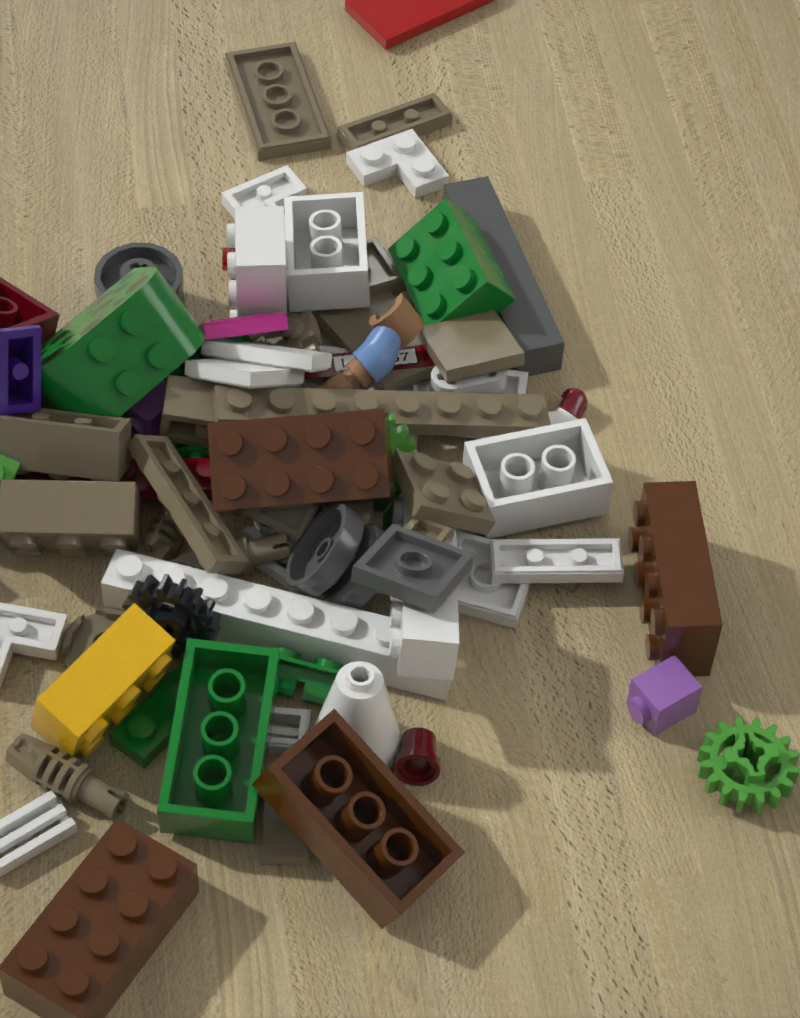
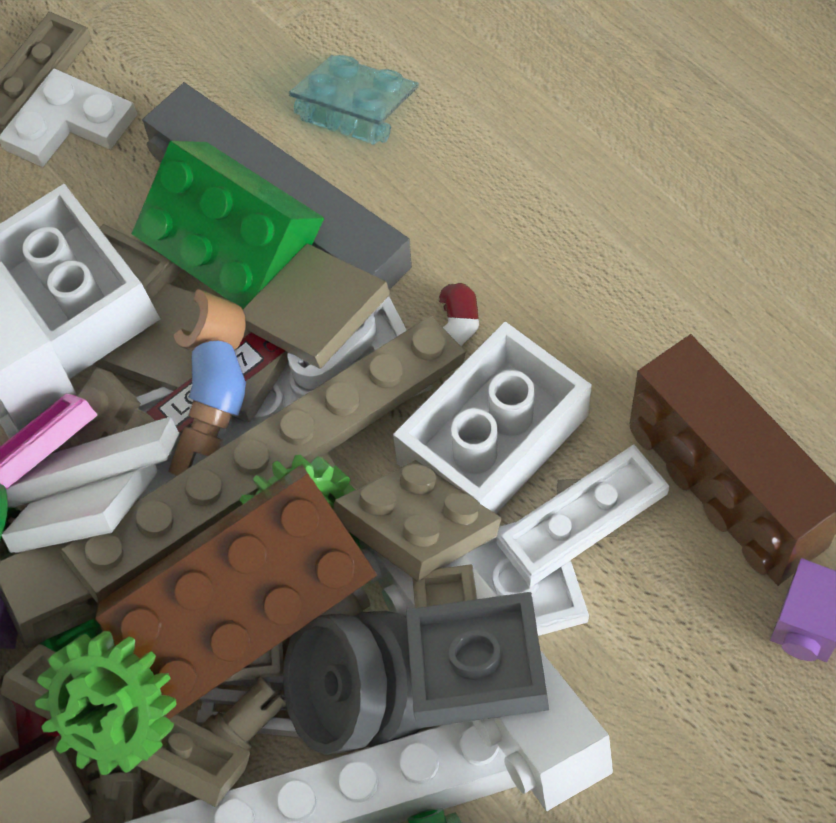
camera: 25 degrees left, 10 degrees up
(182, 472) = (105, 702): none -> bright green gear
(596, 245) = (351, 96): none -> clear light blue hinge

